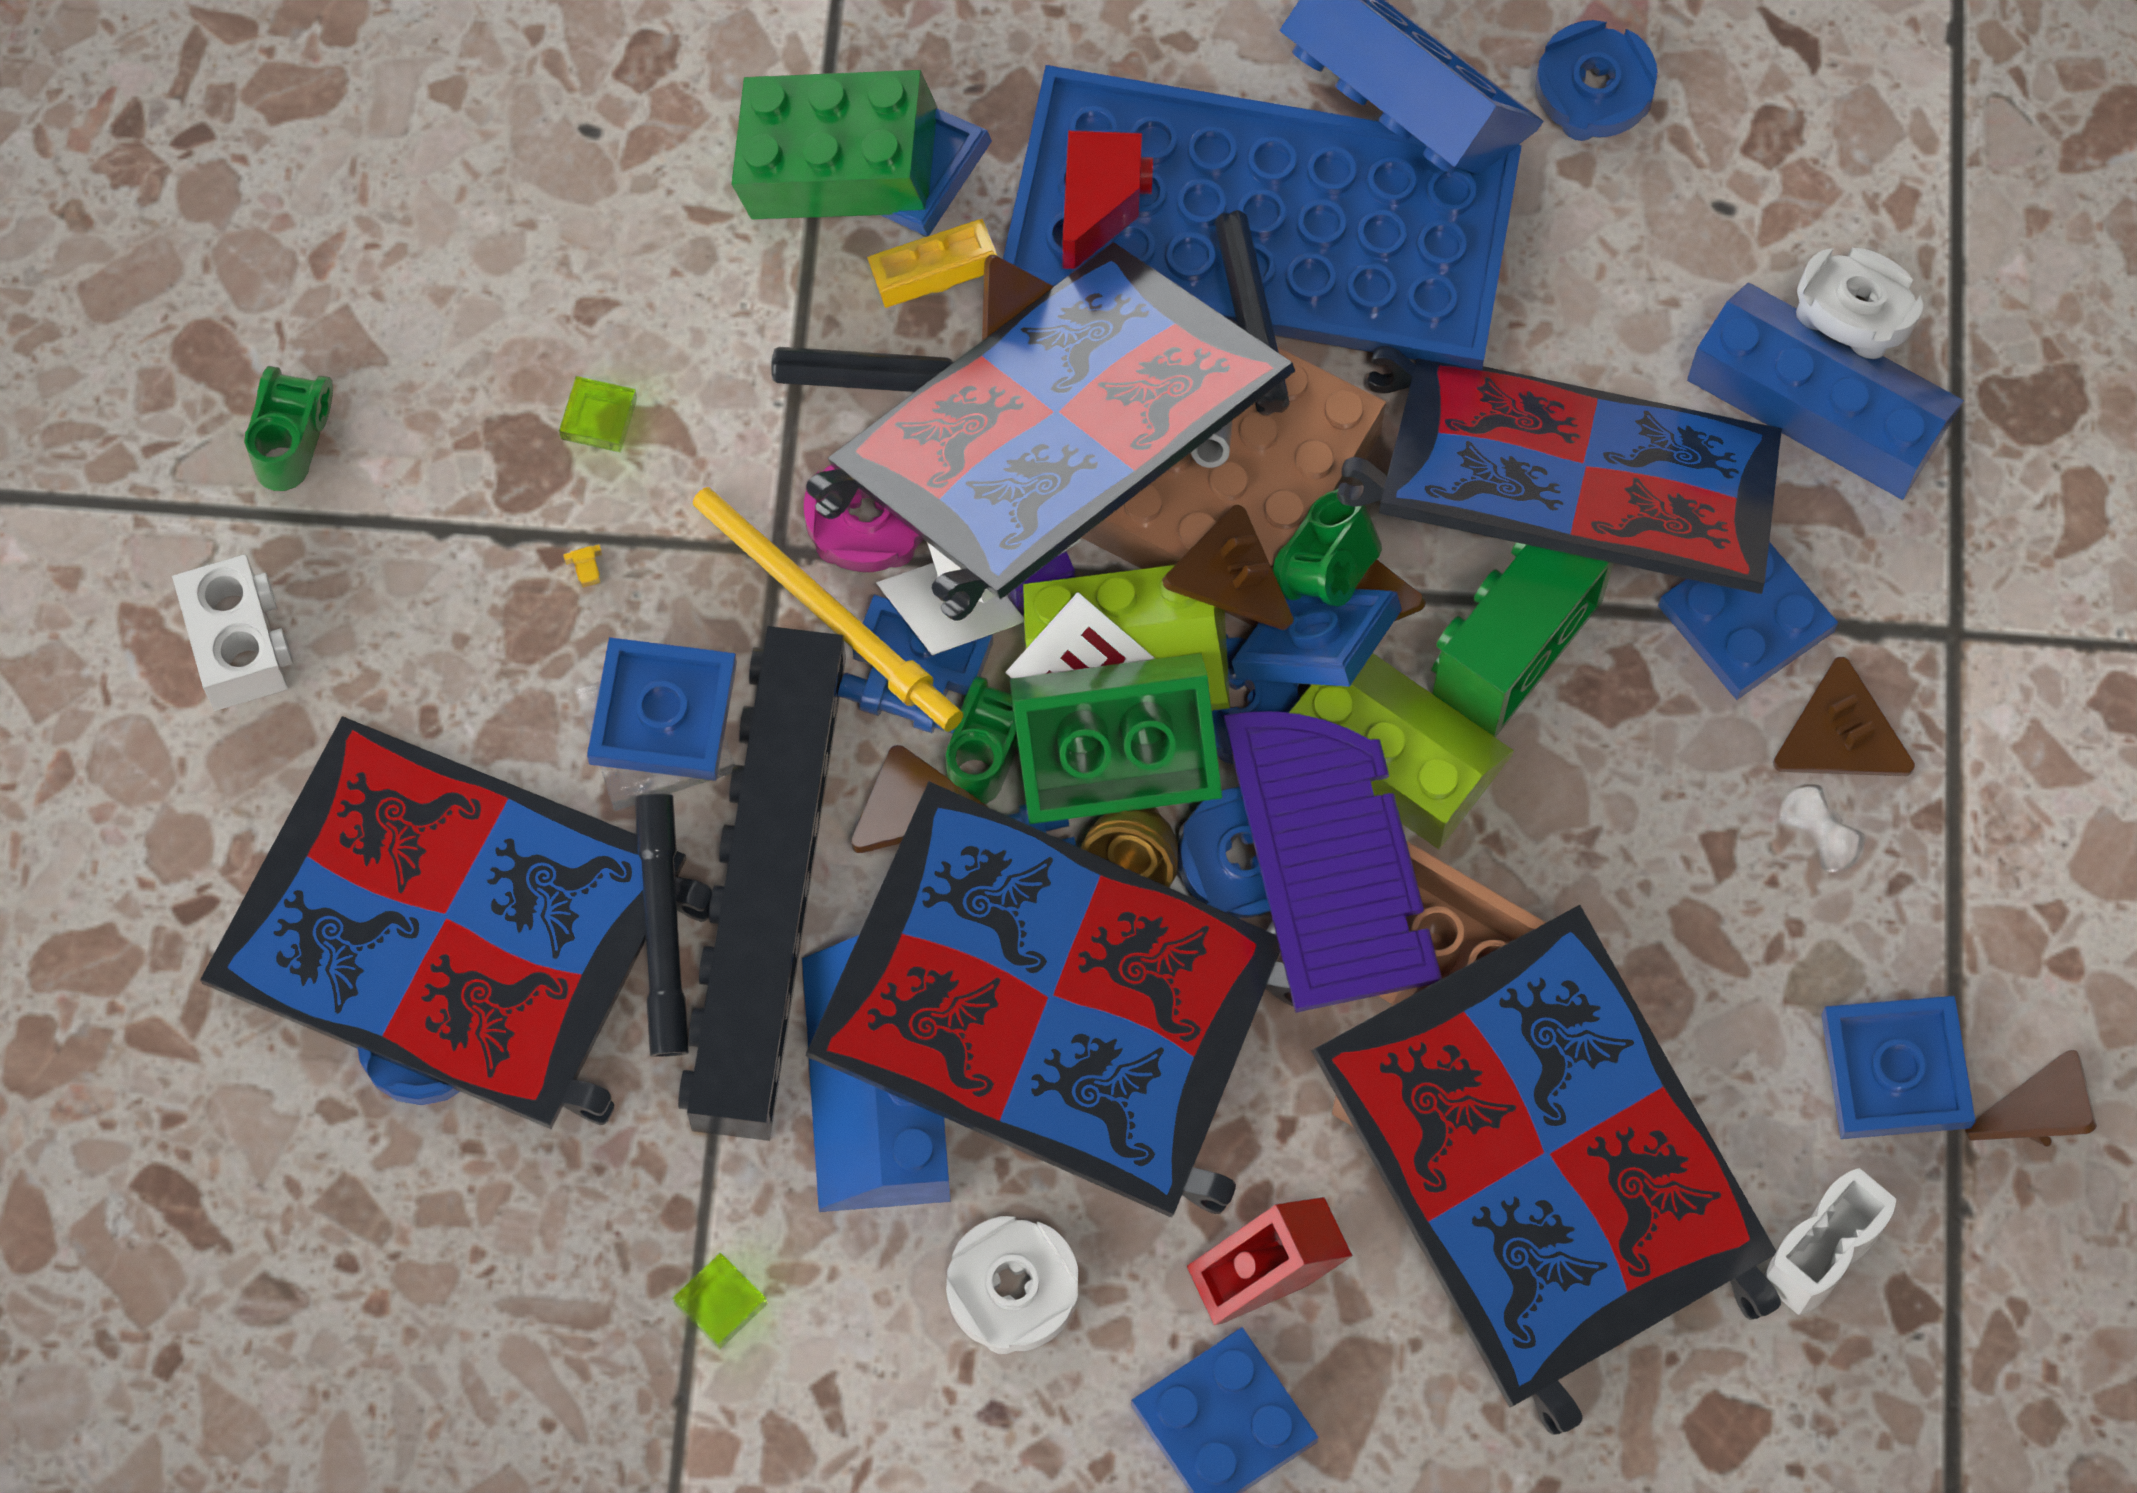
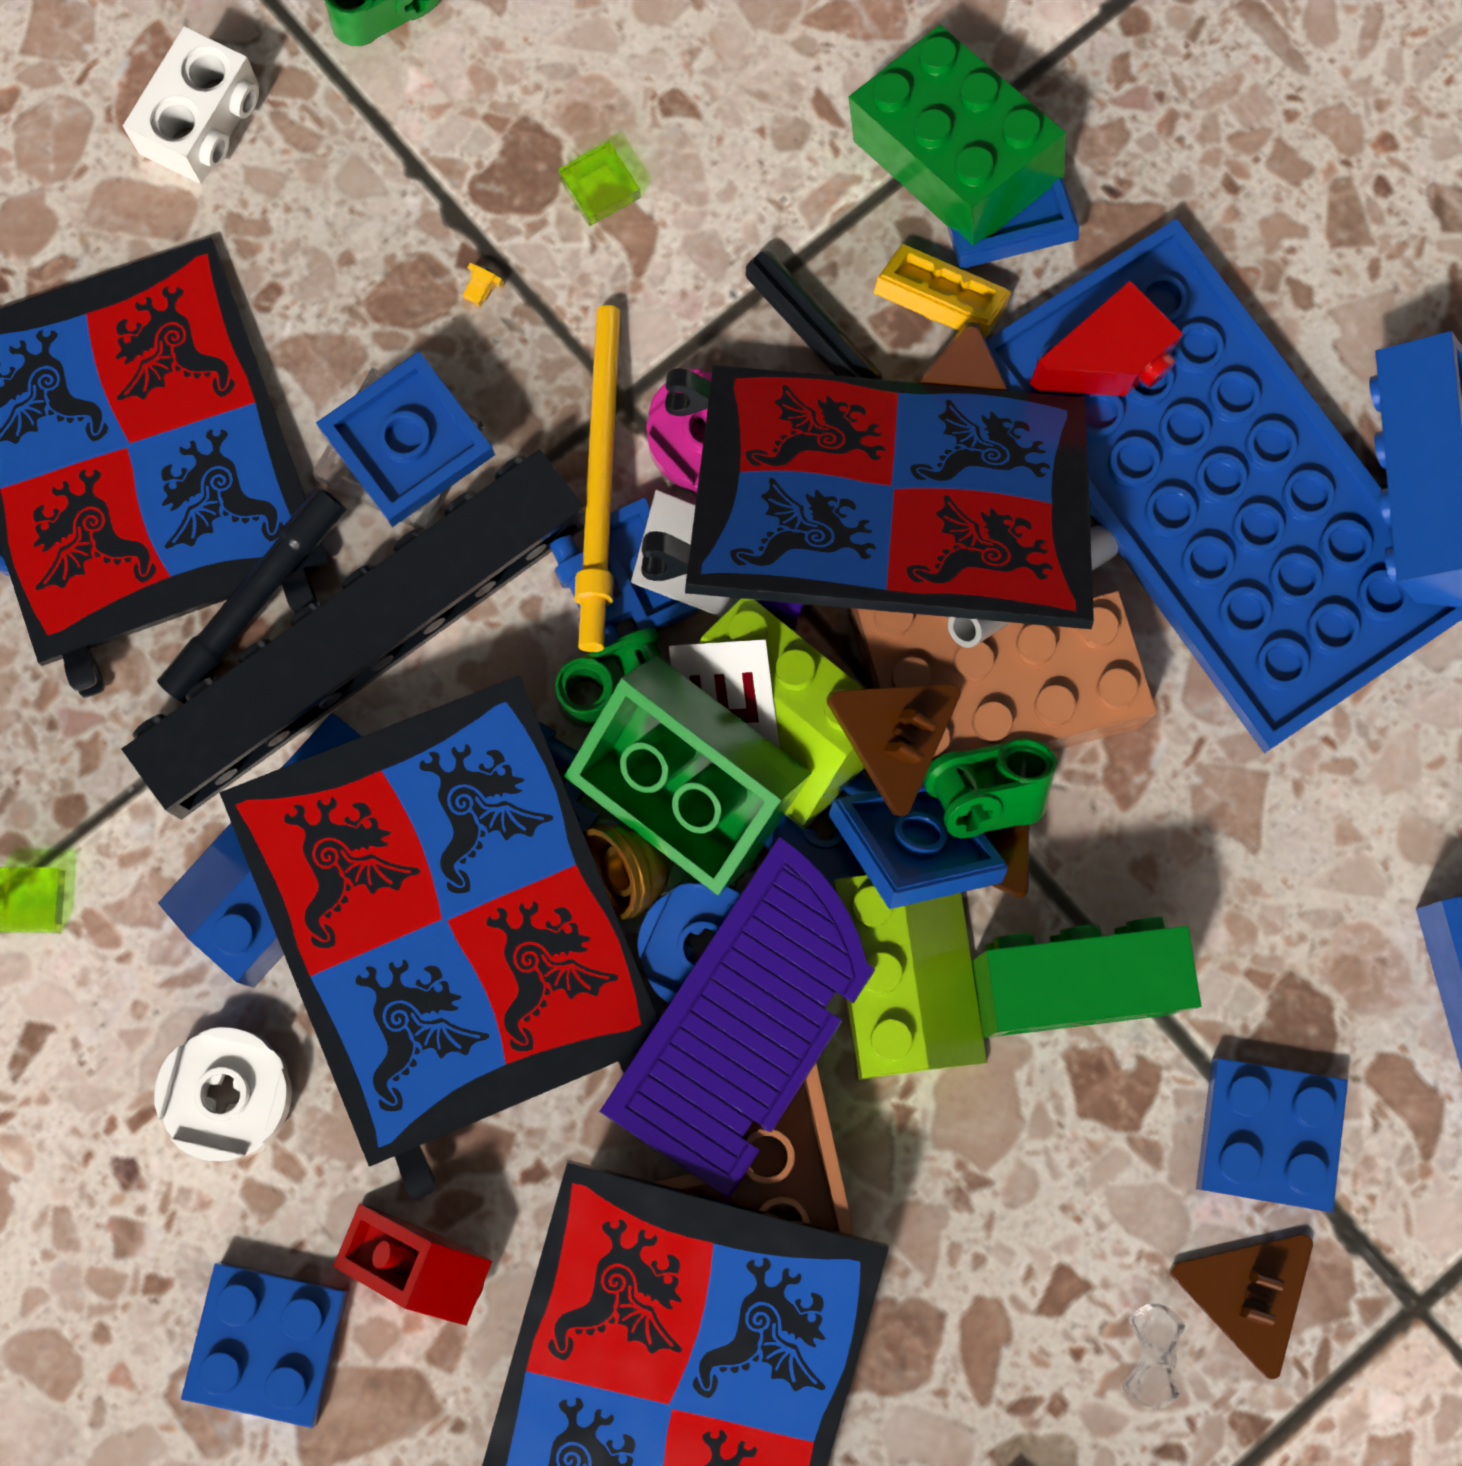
camera: 45 degrees right, 10 degrees up
(896, 799) = (527, 653): piece -> none
(1249, 294) = (1135, 536): black axle -> none
(1575, 471) = (1242, 914): flag -> none

